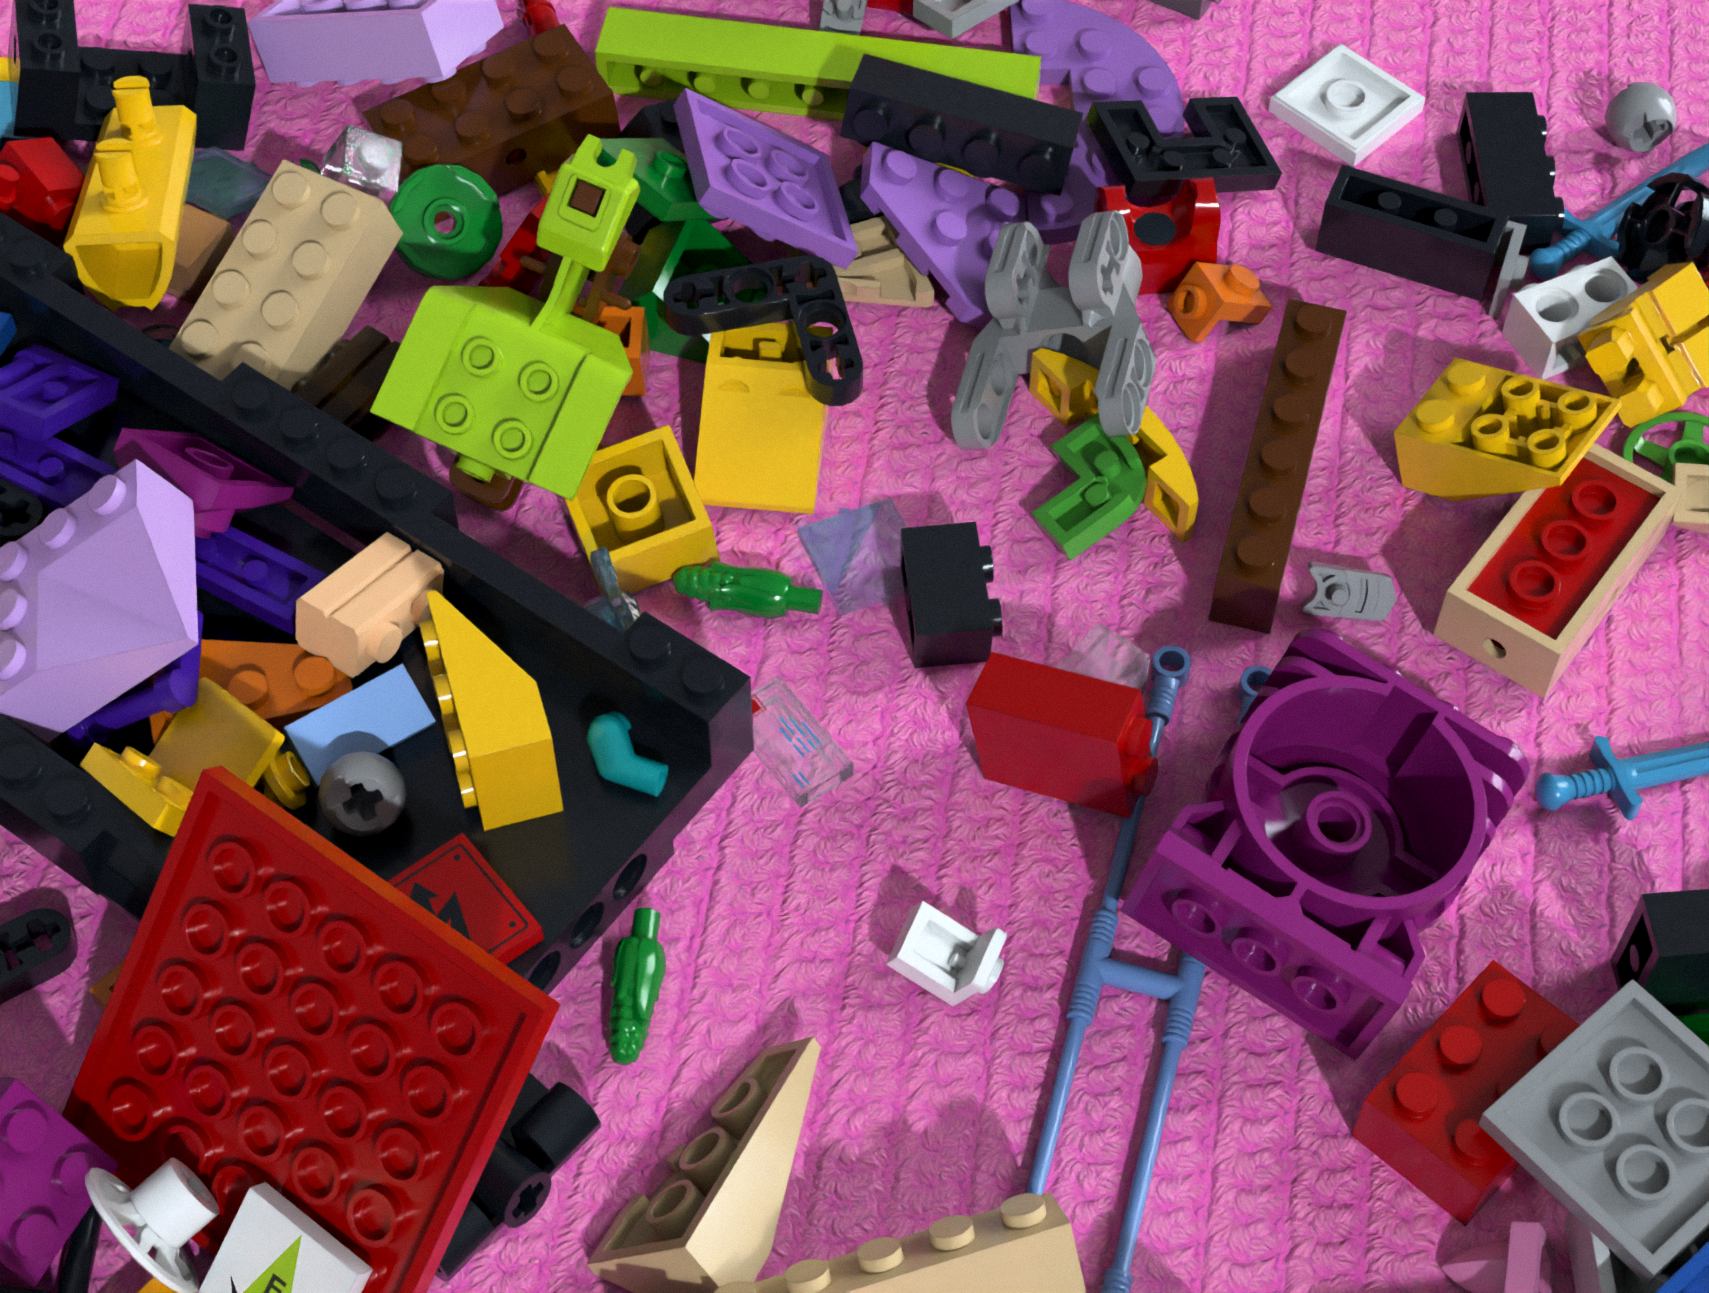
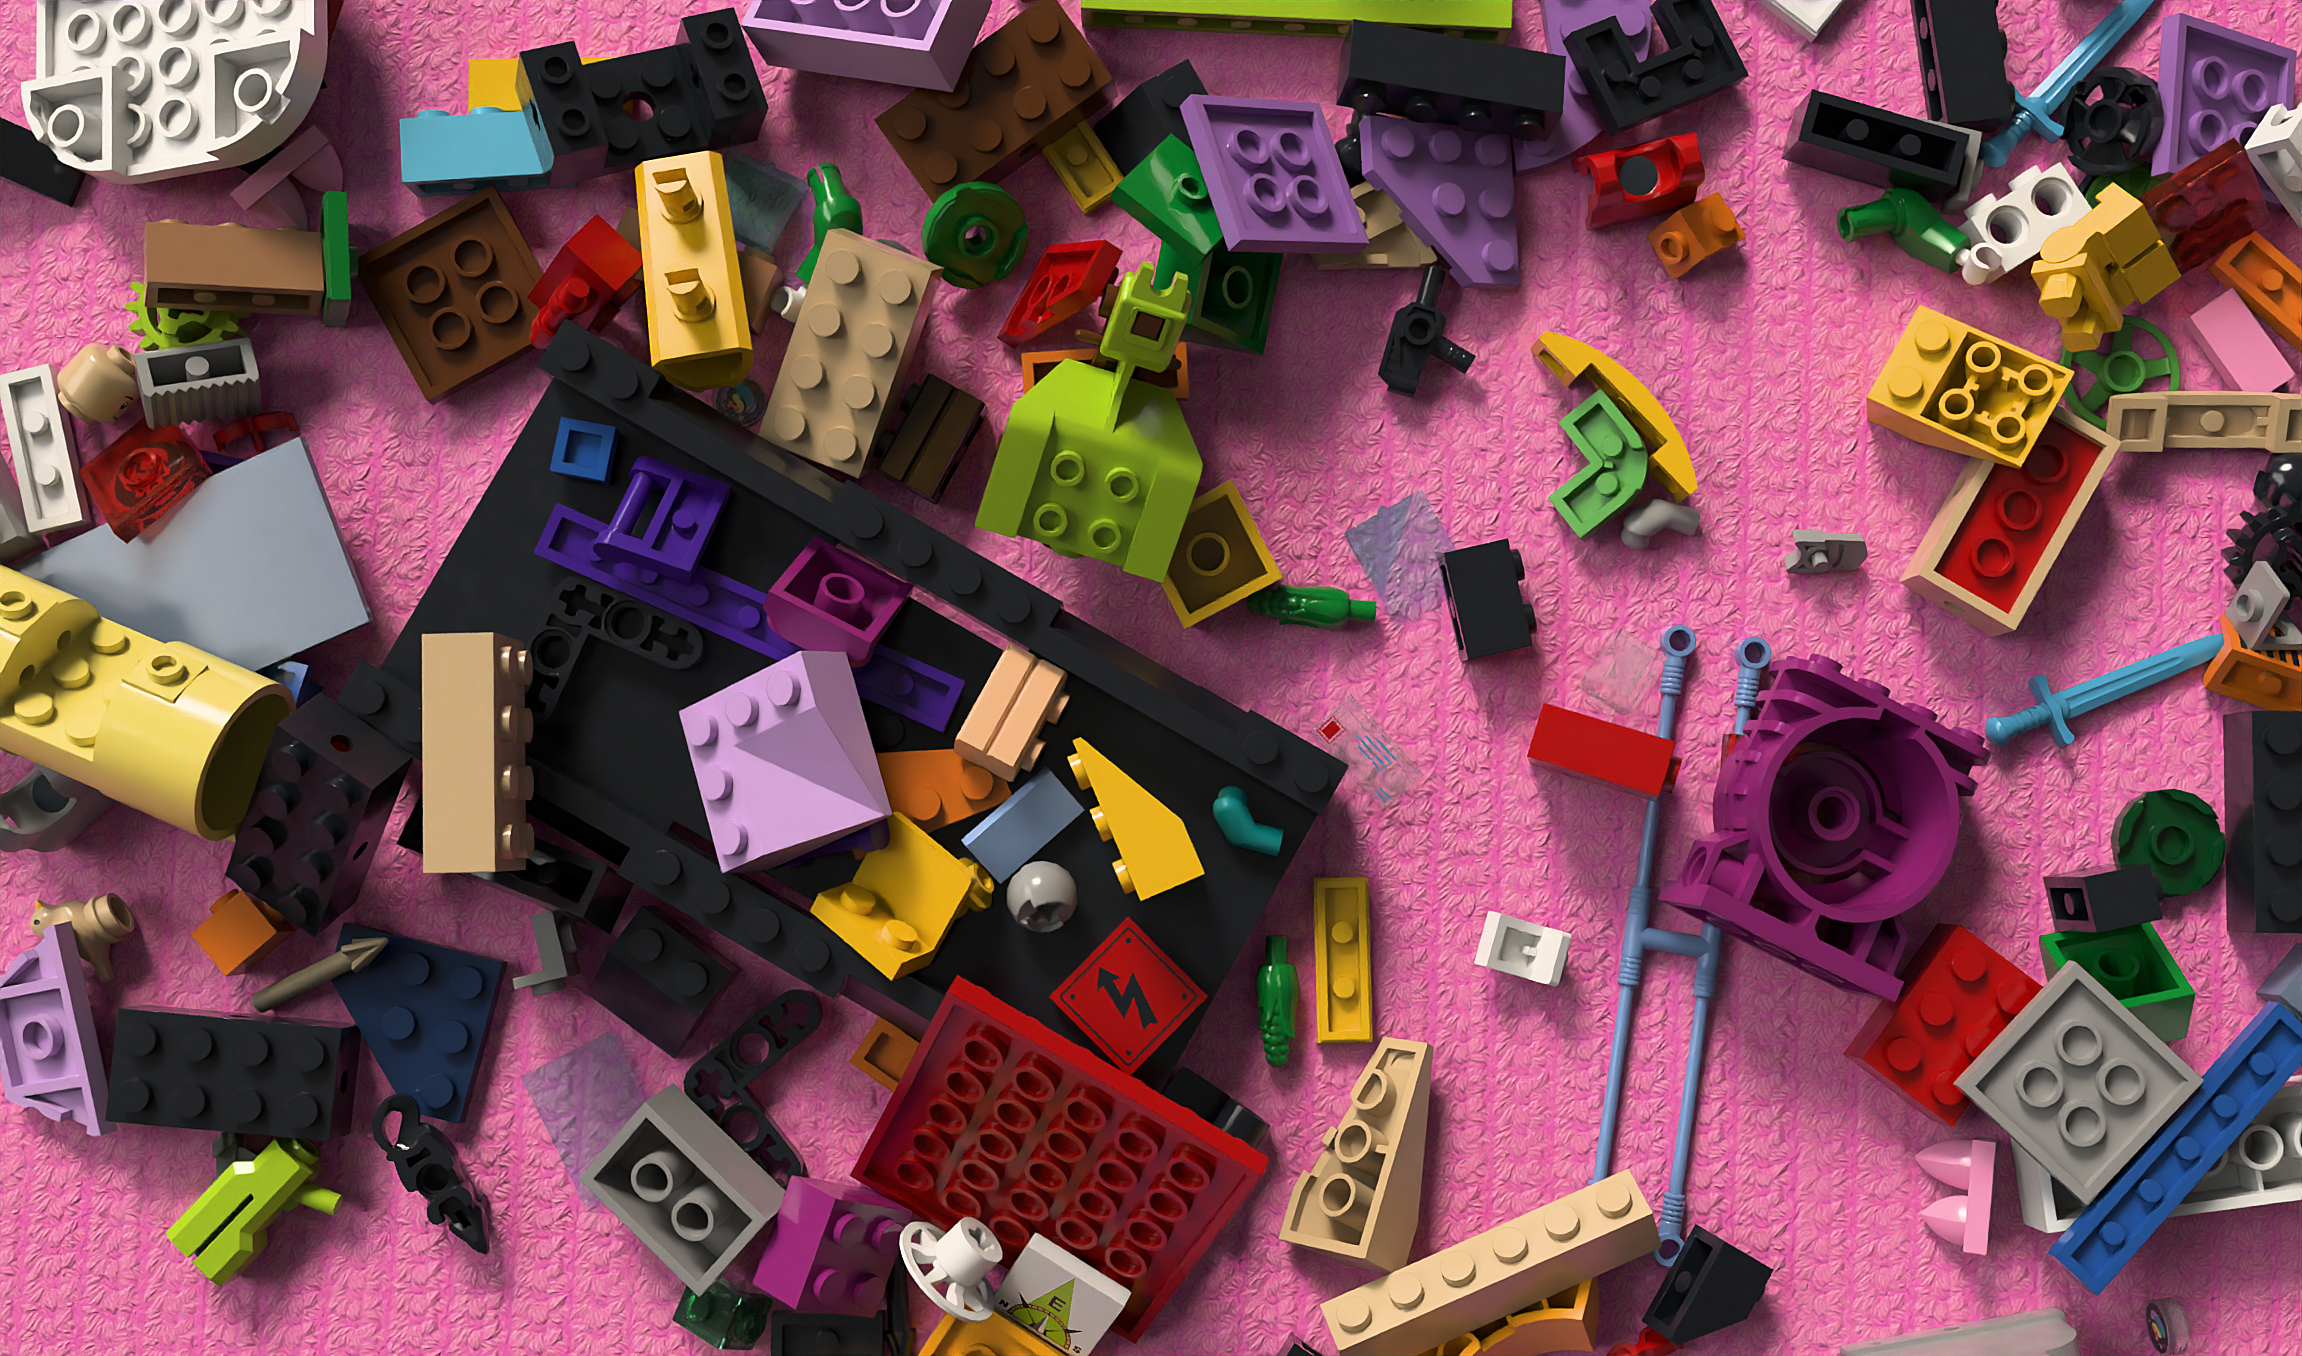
camera: 10 degrees left, 30 degrees up
(364, 162) = (890, 203): clear brick -> none
(615, 605) = (1206, 660): clear light blue animal -> none
(725, 958) = (1342, 960): none -> yellow tile
(760, 422) = (1303, 428): yellow slope -> none
(795, 304) = (1330, 332): black beam -> none
(906, 356) = (1416, 335): none -> black piece
(1086, 320) = (1570, 291): light grey piece -> none
(1157, 543) = (1655, 516): none -> light grey arm
(1277, 467) = (1763, 423): reddish brown brick -> none
(1459, 313) = (1920, 233): none -> green arm

